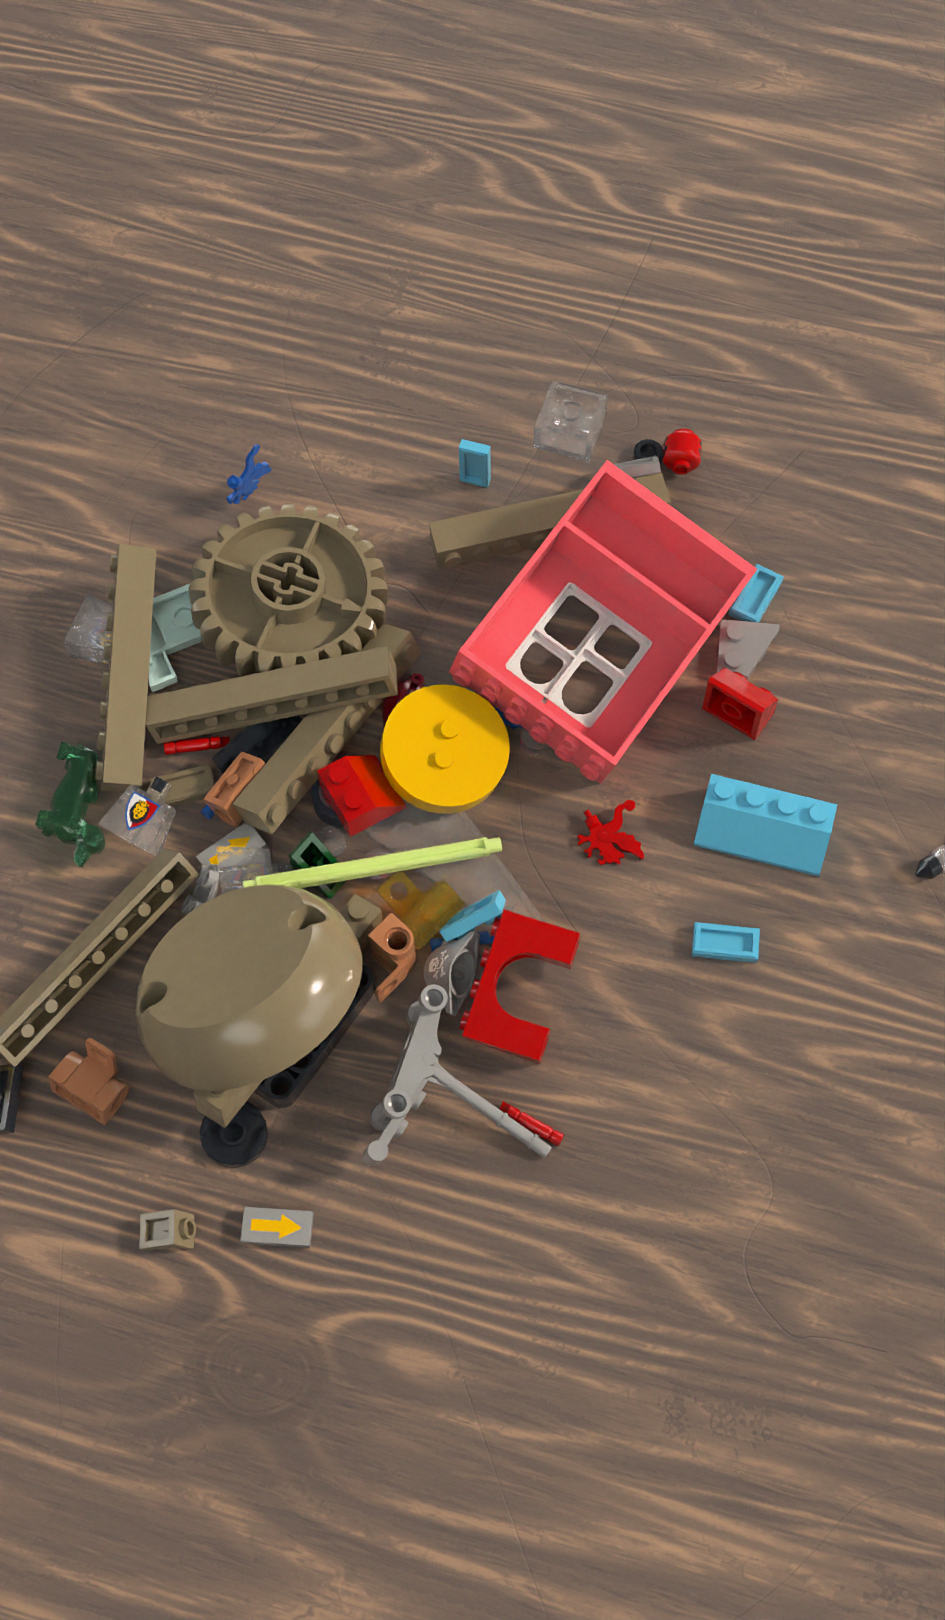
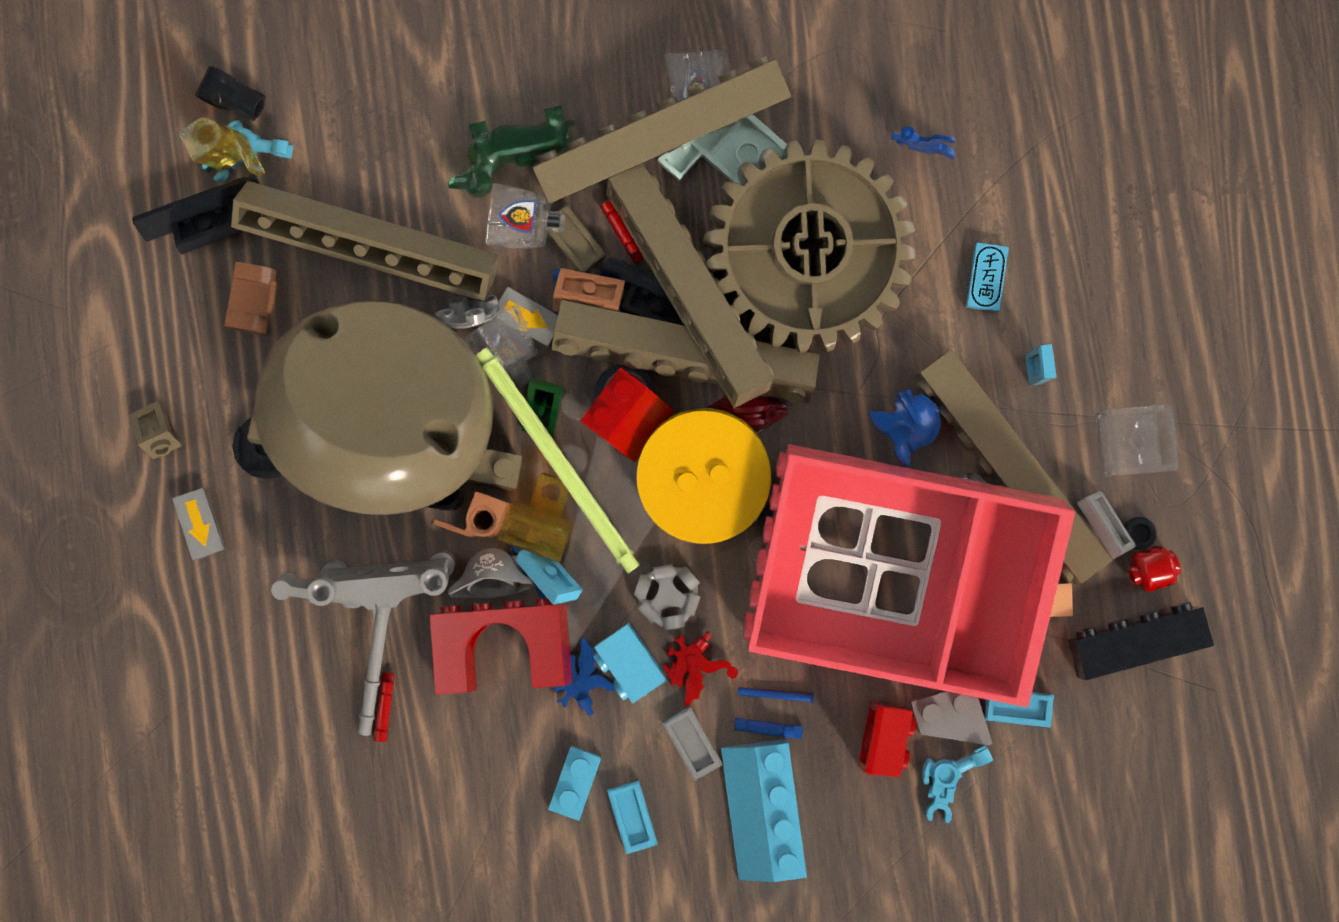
camera: 65 degrees right, 20 degrees up
(382, 482) = (987, 277): none -> medium azure tile
(476, 581) = (910, 426): none -> blue helmet
(536, 831) = (668, 596): none -> light grey piece
(583, 877) = (629, 663): none -> medium azure brick
(589, 941) = (581, 684): none -> blue piece
(665, 778) = (776, 694): none -> blue piece
(674, 979) = (575, 783): none -> medium azure plate
(679, 865) = (692, 743): none -> light grey tile
(691, 798) = (768, 728): none -> blue wheel
(739, 483) = (1140, 642): none -> black brick
(792, 672) = (945, 776): none -> medium azure piece

